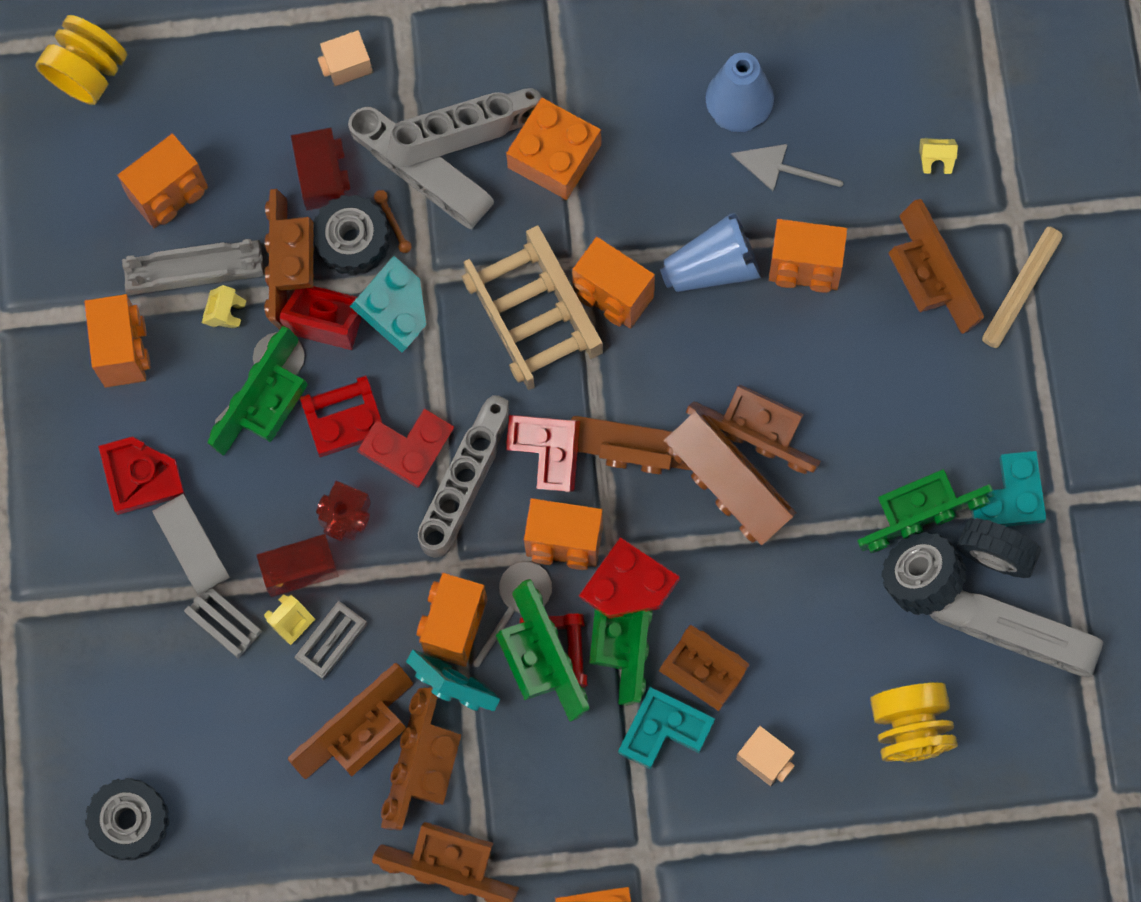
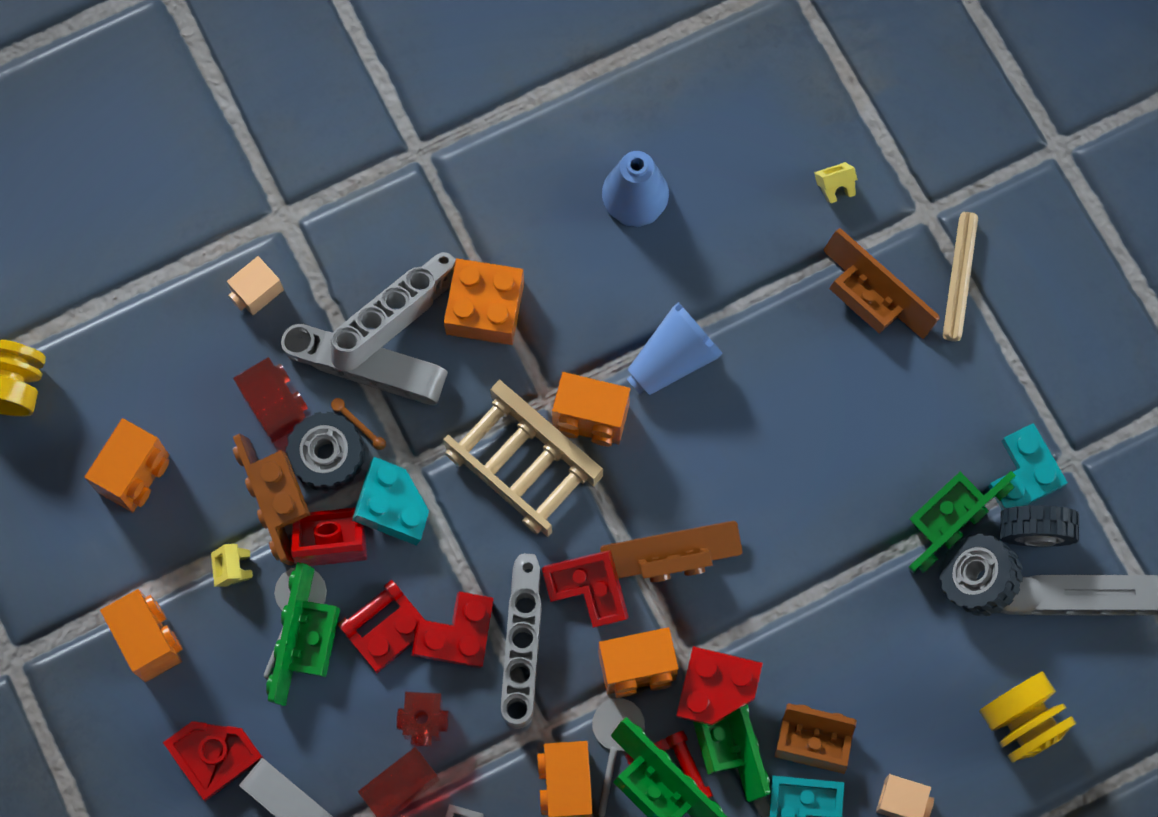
camera: 25 degrees left, 0 degrees up
(193, 266) = (186, 536): light grey piece -> none
(730, 477) = (770, 551): brick -> none
(763, 424) = (774, 489): dark orange bracket -> none
(767, 163) = (683, 244): light grey piece -> none
(807, 255) = (759, 318): orange brick -> none

